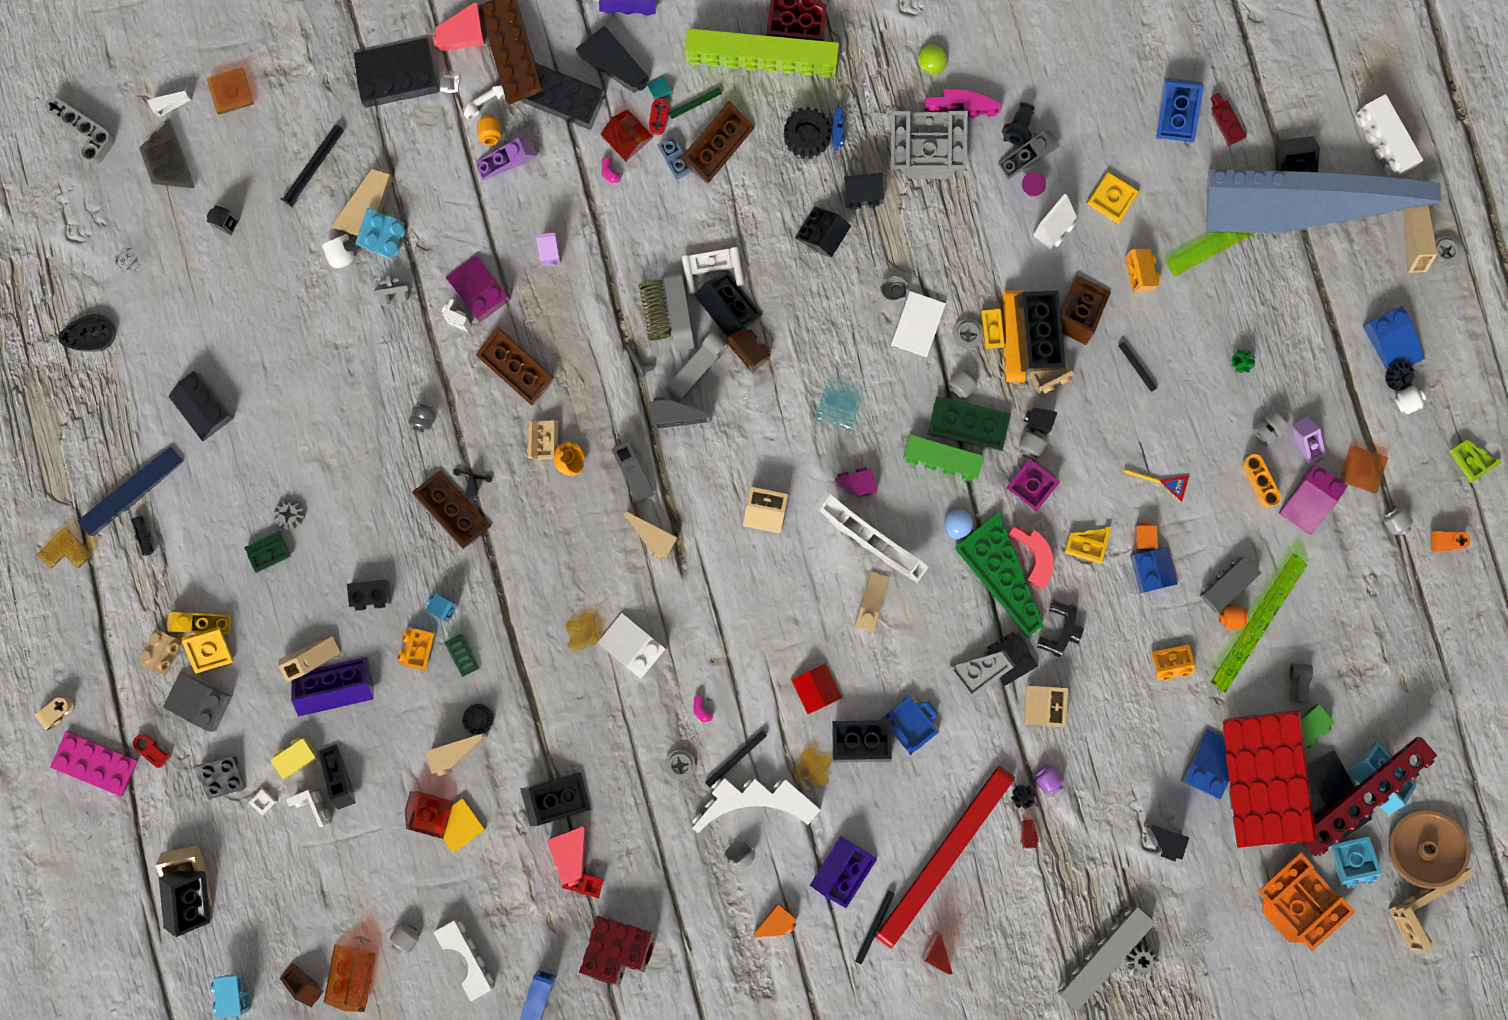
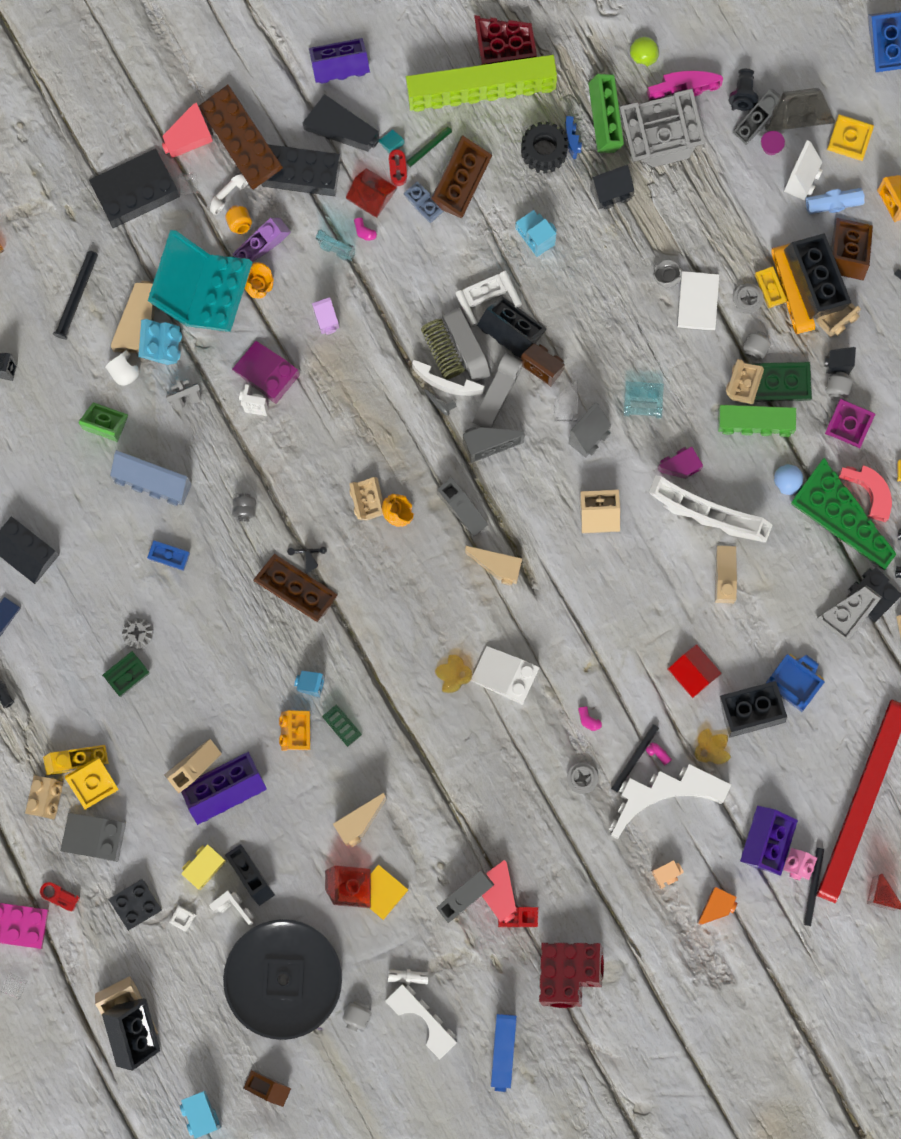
camera: 15 degrees left, 5 degrees down
(308, 298) = (103, 421): none -> bright green slope
(314, 893) = (253, 983): none -> black dish
(337, 446) = (168, 555): none -> blue plate
(338, 367) = (150, 478): none -> sand blue slope
(349, 978) = (312, 1069): clear orange slope -> none
(368, 590) = (234, 683): black brick -> none
(430, 186) = (198, 286): none -> teal bracket
(462, 913) = (408, 976): none -> white pin
(487, 720) = (363, 784): black gear -> none
(492, 196) = (259, 280): none -> light orange hair
(515, 366) = (321, 435): reddish brown slope -> none
(535, 852) = (465, 896): none -> dark grey slope
(555, 799) = (469, 841): black slope -> none
(570, 176) = (329, 244): none -> clear light blue plate
(670, 355) = (469, 389): none -> white slope
(737, 878) = (667, 873): none -> light nougat brick
(740, 854) = (664, 849): light grey hair -> none
(757, 755) = (655, 749): none -> dark pink arm
(776, 216) = (536, 232): none -> medium azure brick
(776, 429) = (590, 431): none -> dark grey slope
(823, 231) = (584, 235): black slope -> none
(866, 903) = (799, 864): none -> bright pink brick
(876, 113) = (605, 113): none -> bright green brick
(940, 418) = (744, 382): none -> tan bracket
(1069, 158) = (800, 110): none -> clear smoke wing
(1079, 258) = (835, 201): none -> light blue piece

